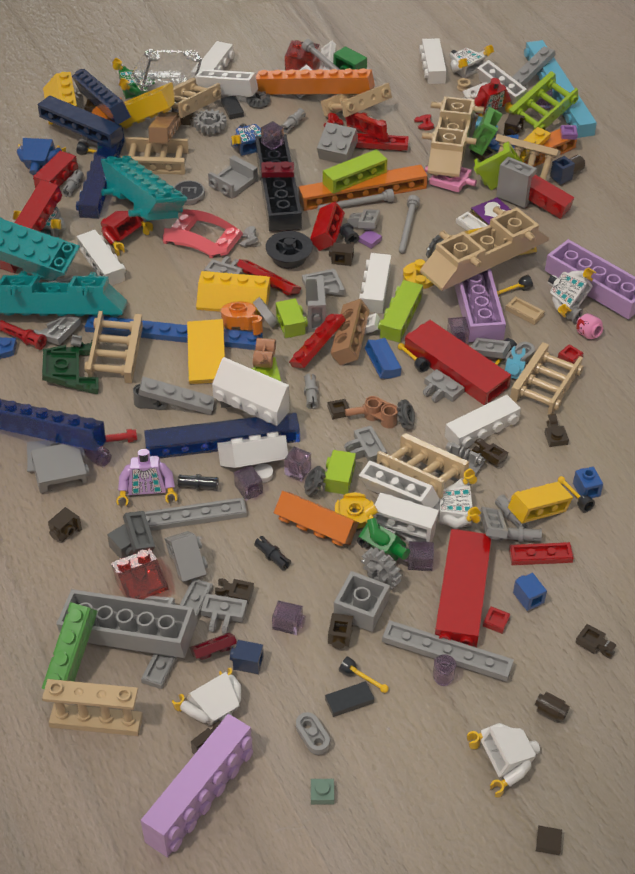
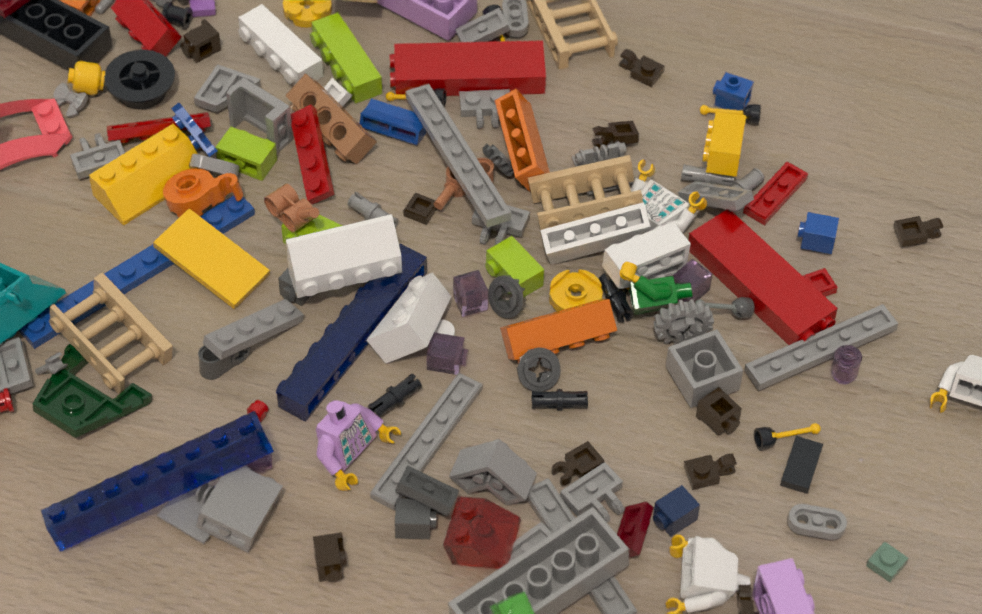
camera: 50 degrees left, 5 degrees up
(265, 229) = (86, 77): none -> yellow head
(270, 528) = (547, 378): none -> dark grey gear
(274, 286) = (197, 136): none -> wing
(288, 617) = (659, 443): brick -> none
(295, 653) = (706, 472): none -> dark brown plate
(379, 393) = (458, 156): none -> light grey plate
(430, 591) = (741, 307): none -> dark grey hinge
(432, 412) = (521, 137): none -> orange brick
(459, 328) = (428, 31): brick -> none
(483, 422) = (573, 110): white brick -> none
(515, 365) = (529, 28): medium azure plate -> none
(552, 706) = (959, 316): dark brown brick -> none

